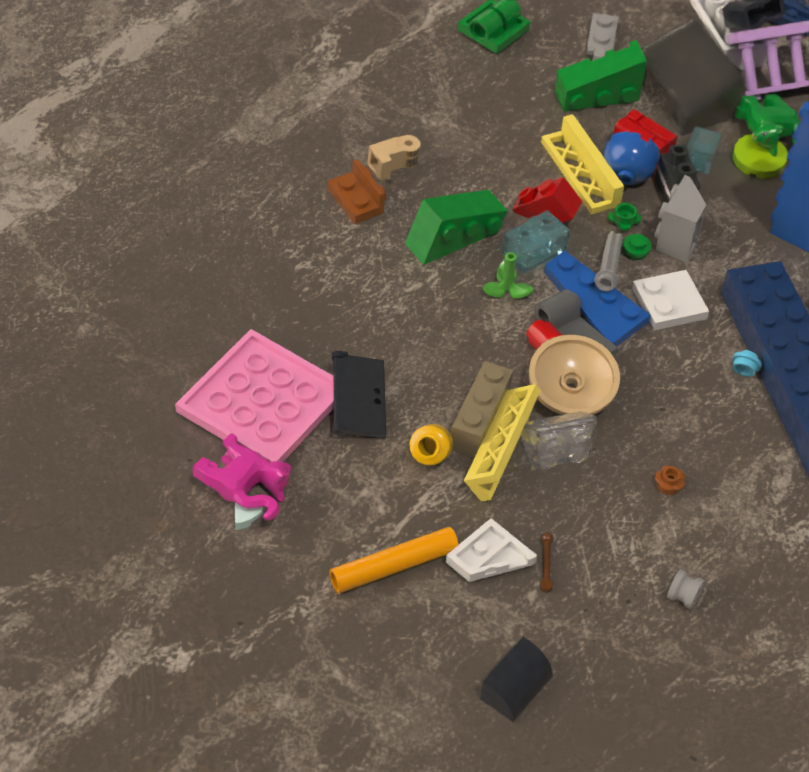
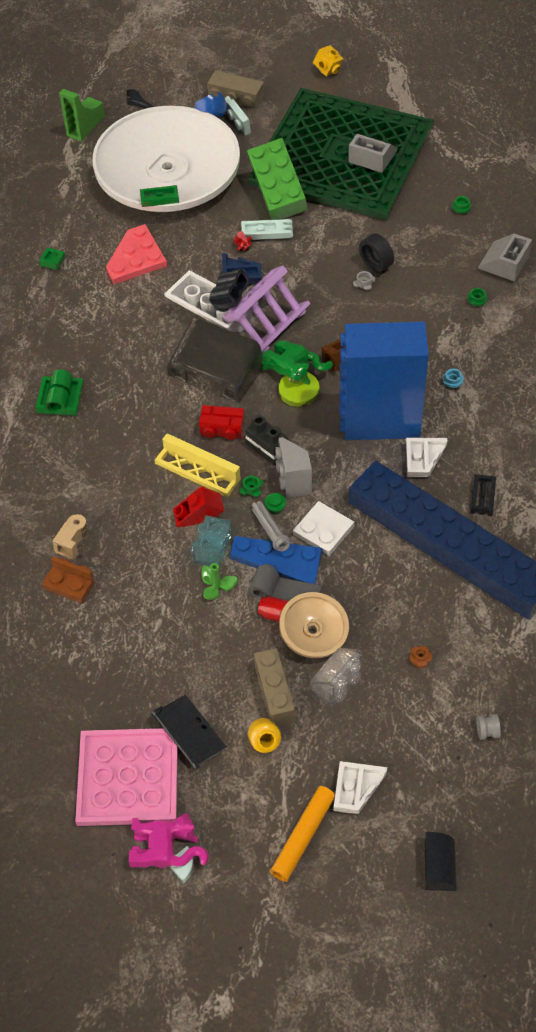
camera: 30 degrees left, 5 degrees up
(453, 223) = (152, 562): green wedge -> none
(500, 441) = (306, 701): light yellow fence -> none
(546, 584) = (404, 782): reddish brown hinge -> none
(601, 35) = (135, 362): light grey hinge -> none
(603, 81) = (165, 396): green wedge -> none
(631, 157) = (228, 443): blue cylinder -> none
(703, 149) = (263, 404): clear light blue brick -> none
(746, 363) = (404, 544): medium azure plate -> none

